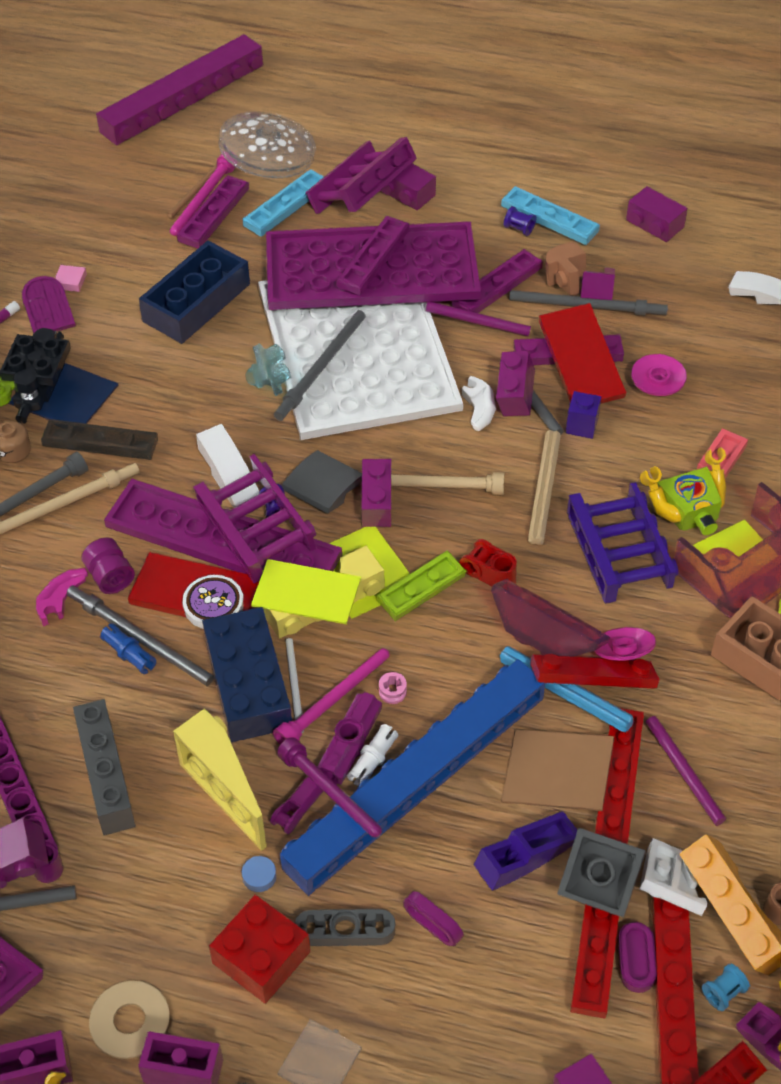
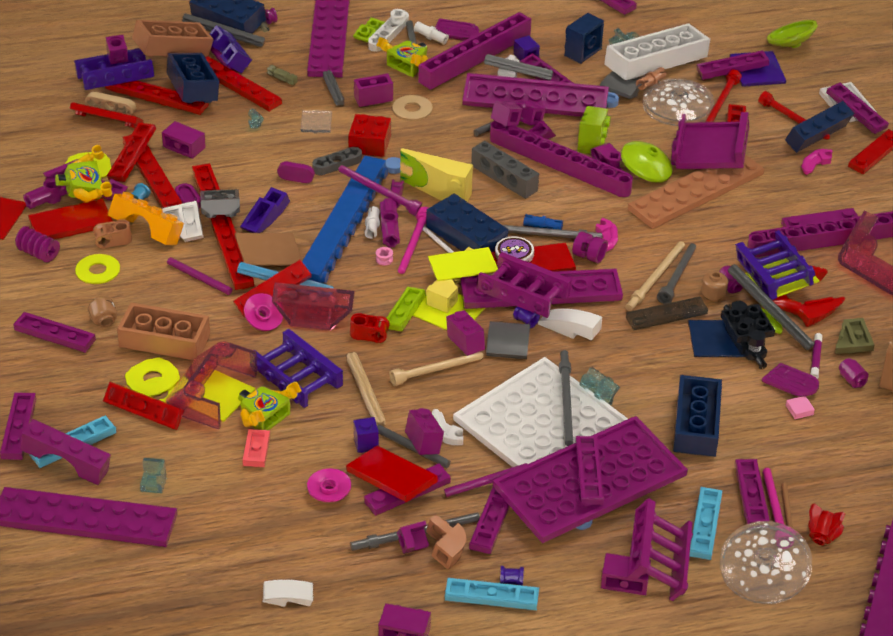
camera: 150 degrees right, 10 degrees down
(181, 151) = (824, 525): none -> red brick

